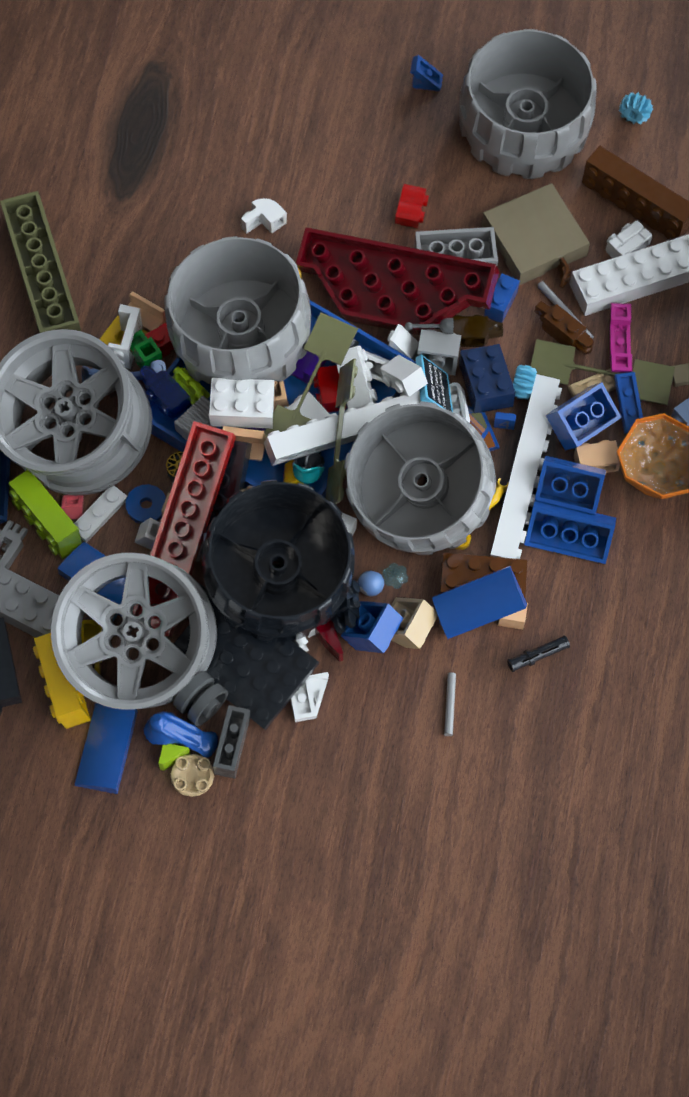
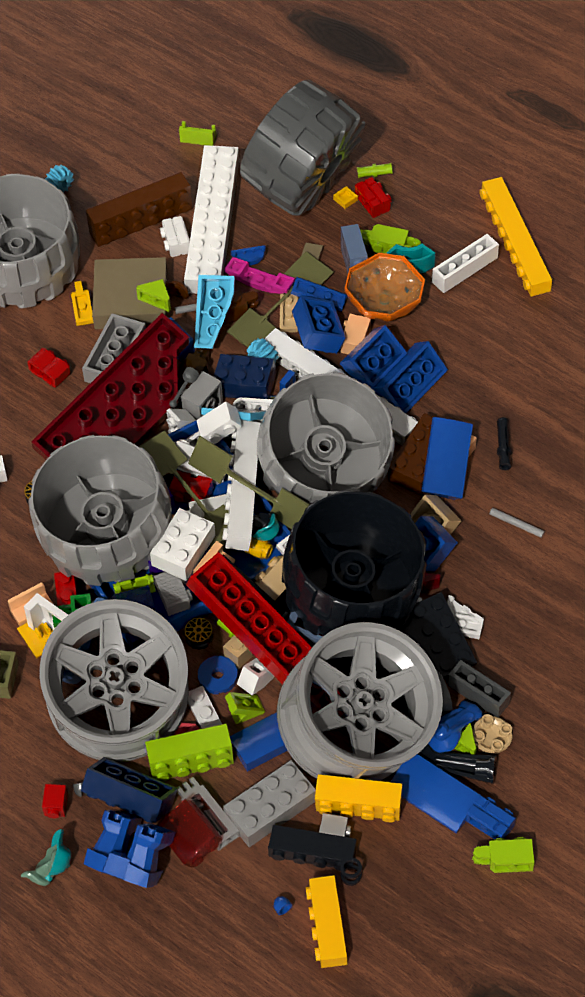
camera: 60 degrees left, 10 degrees down
(26, 673) = (335, 825): none -> light grey brick
(65, 839) = (506, 855): none -> lime hinge
(97, 809) = (490, 818): none -> blue brick
(118, 538) = (244, 706): none -> lime slope
(146, 770) = (466, 765): none -> black animal
(500, 196) = (81, 305): none -> yellow hinge
(535, 253) = (154, 294): none -> lime slope
(546, 307) = (213, 302): none -> medium azure wedge
(643, 319) = (252, 255): none -> blue plate

